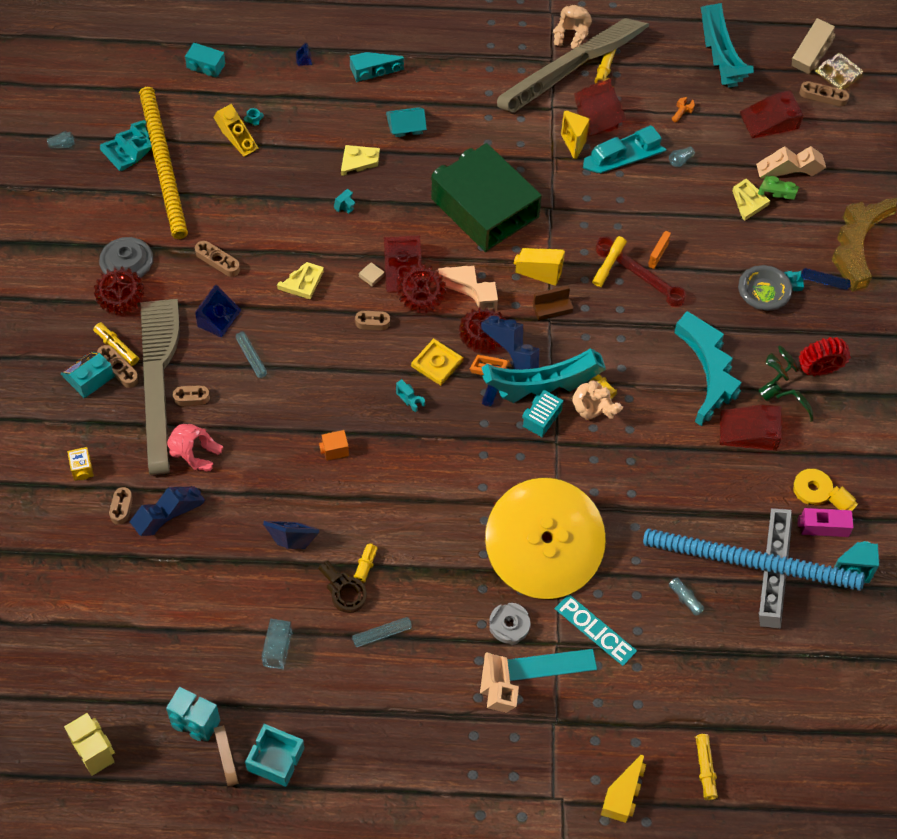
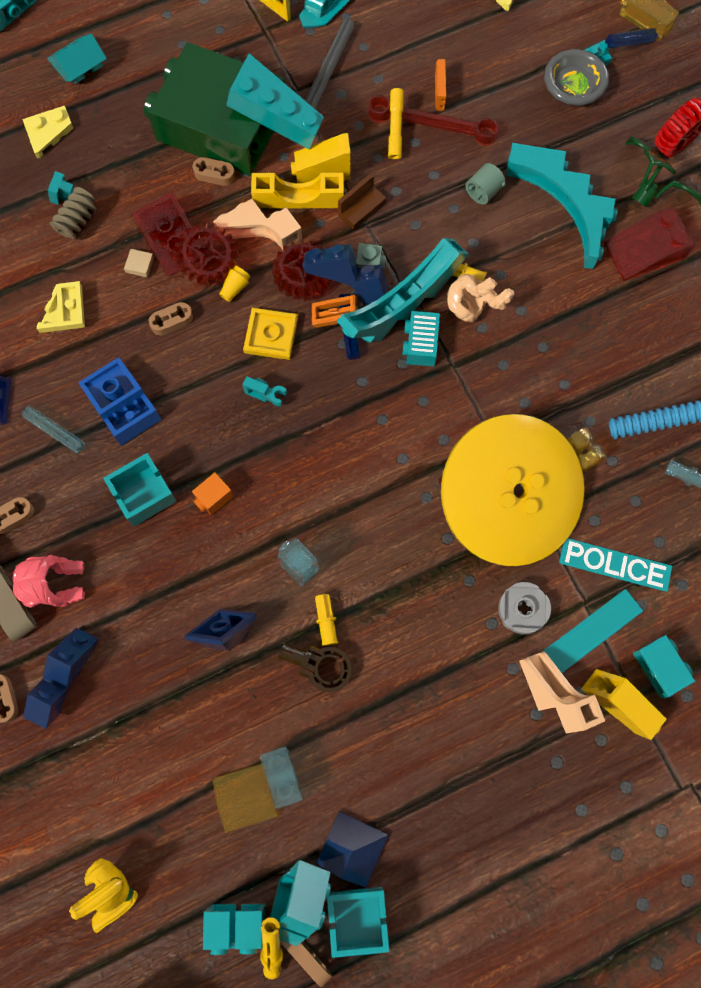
camera: 25 degrees left, 15 degrees up
(123, 654) = (109, 898): none -> yellow hair
(206, 743) = (271, 953): none -> yellow pin
(243, 647) = (244, 798): none -> clear yellow slope
(243, 718) = (300, 902): none -> teal piece
(288, 418) = (140, 488): none -> teal piece
(297, 713) = (352, 850): none -> dark blue slope
(306, 357) = (120, 401): none -> blue slope
(344, 221) = (73, 212): none -> dark tan piece
(367, 513) = (298, 561): none -> clear light blue brick
(381, 631) = (390, 694): clear light blue axle -> none
(430, 316) = (234, 283): none -> yellow cone
(460, 236) = (213, 171): none -> medium nougat beam
(490, 267) = (272, 192): none -> yellow arch
(521, 209) = (273, 104): none -> teal wedge
(537, 340) = (370, 255): none -> sand green brick
(544, 718) = (625, 703): none -> yellow slope
(579, 205) = (330, 63): none -> dark grey axle
(587, 709) = (664, 666): none -> teal brick
(615, 540) = (584, 440): none -> clear yellow wheel
(651, 330) = (485, 183): none -> sand green piece

